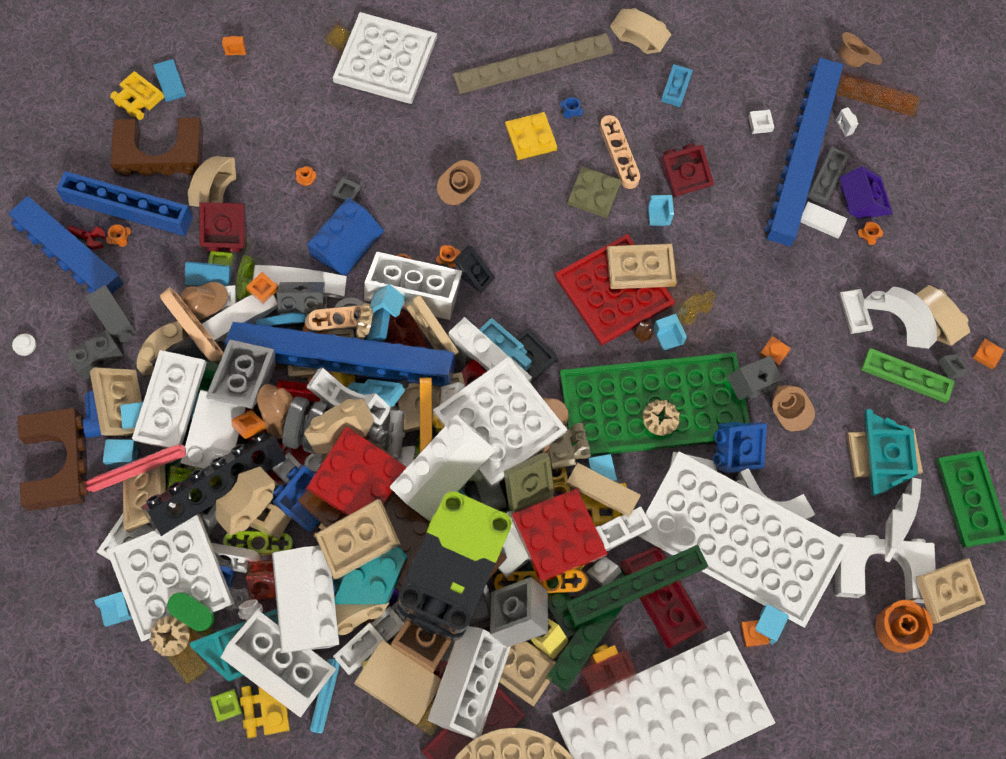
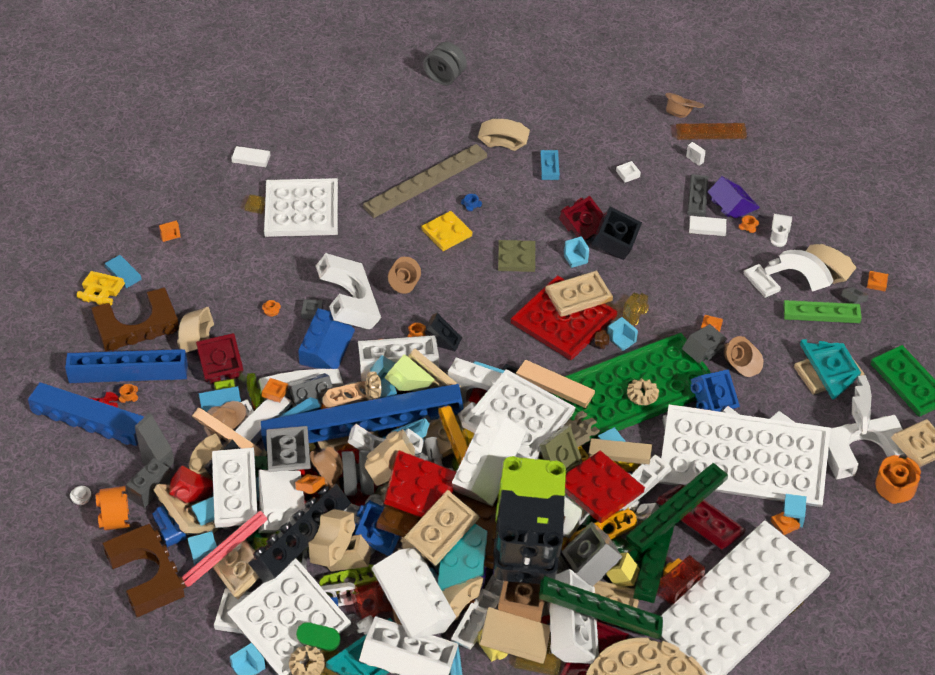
camera: 15 degrees left, 20 degrees down
(44, 376) = (113, 508): none -> orange brick
(128, 377) = (190, 486): none -> red slope
(403, 166) = (356, 311): none -> white arch
(405, 321) = (408, 376): none -> yellowish green slope
(498, 689) = (601, 607): none -> dark green plate
(569, 375) = (556, 383): none -> light nougat tile
(622, 151) = (527, 221): light nougat beam -> none
(713, 201) = (616, 233): none -> black brick
(805, 151) = (671, 184): blue brick -> none
(903, 252) = (780, 229): none -> white piece

